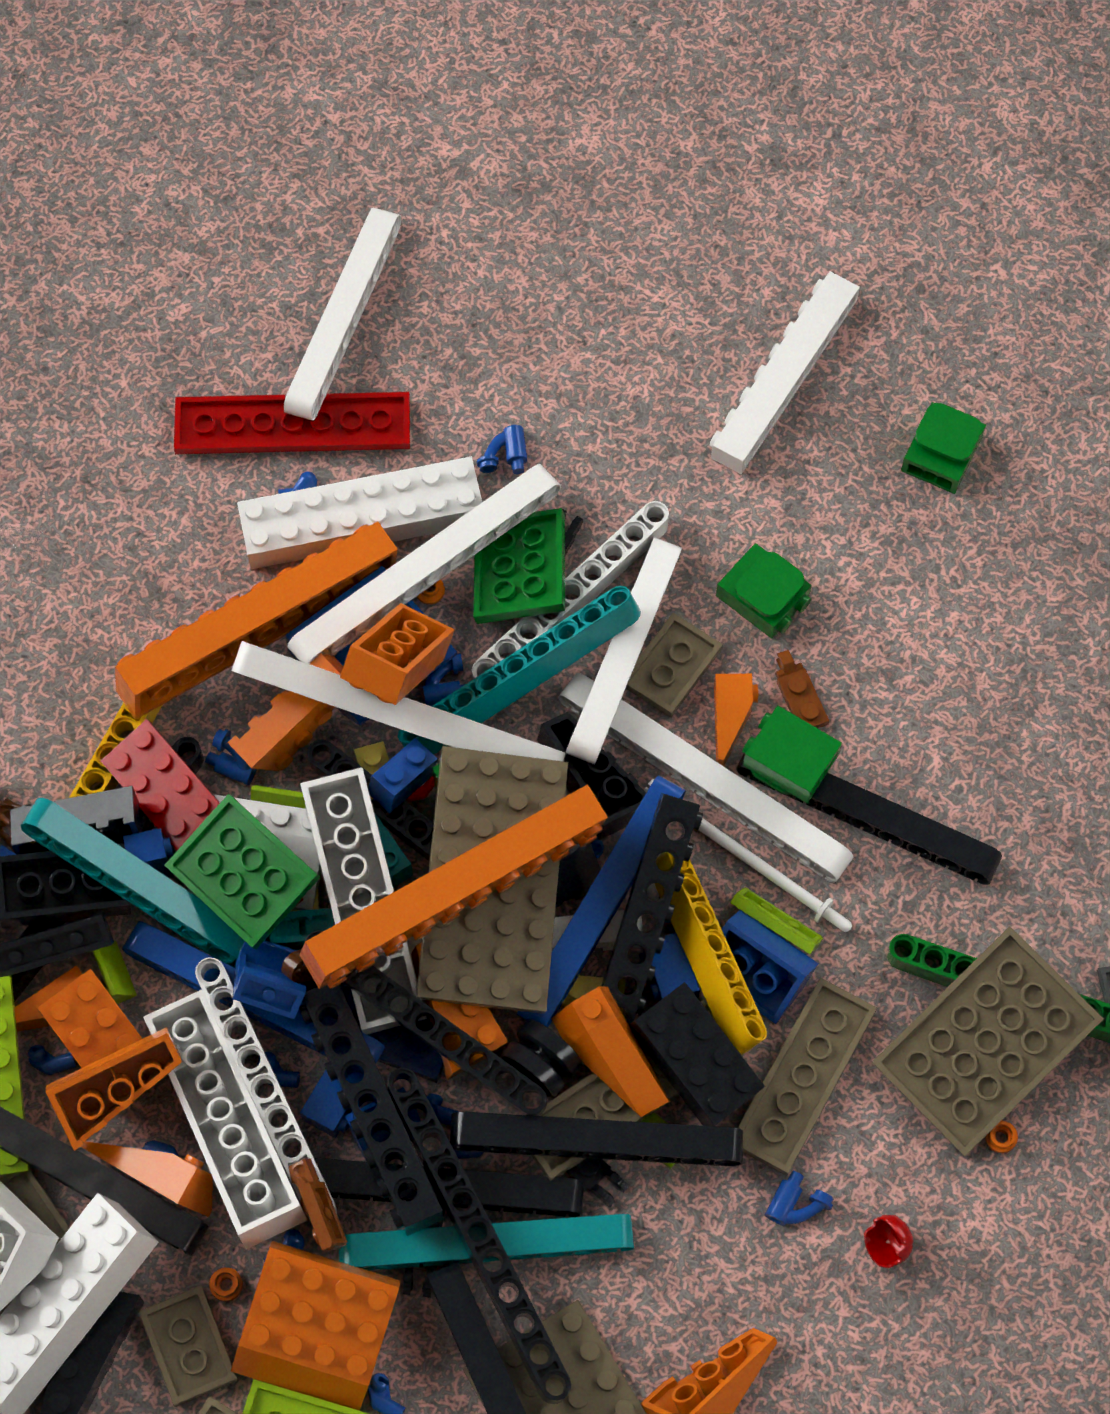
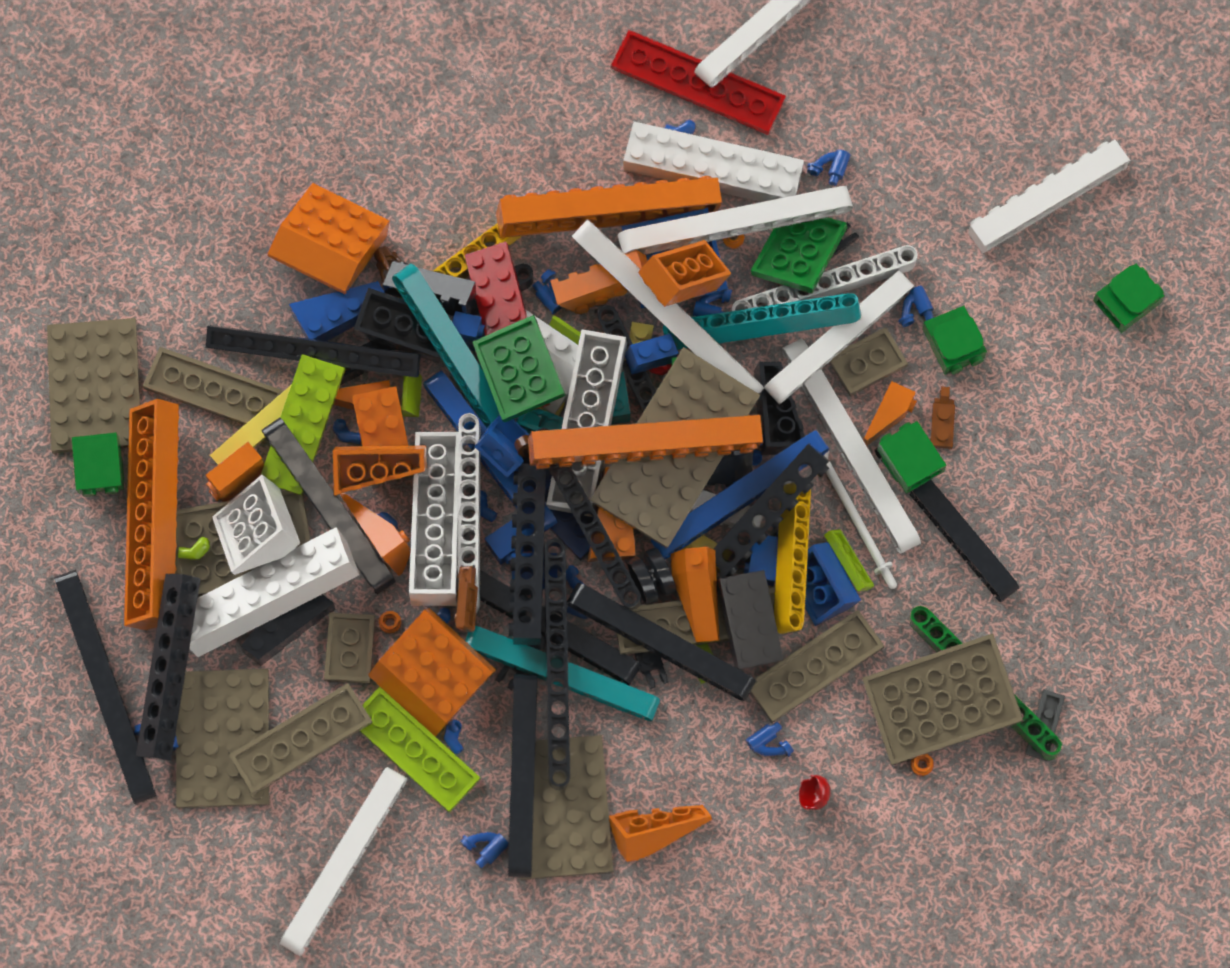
camera: 25 degrees right, 5 degrees up
(702, 565) = (922, 303): none -> blue plant

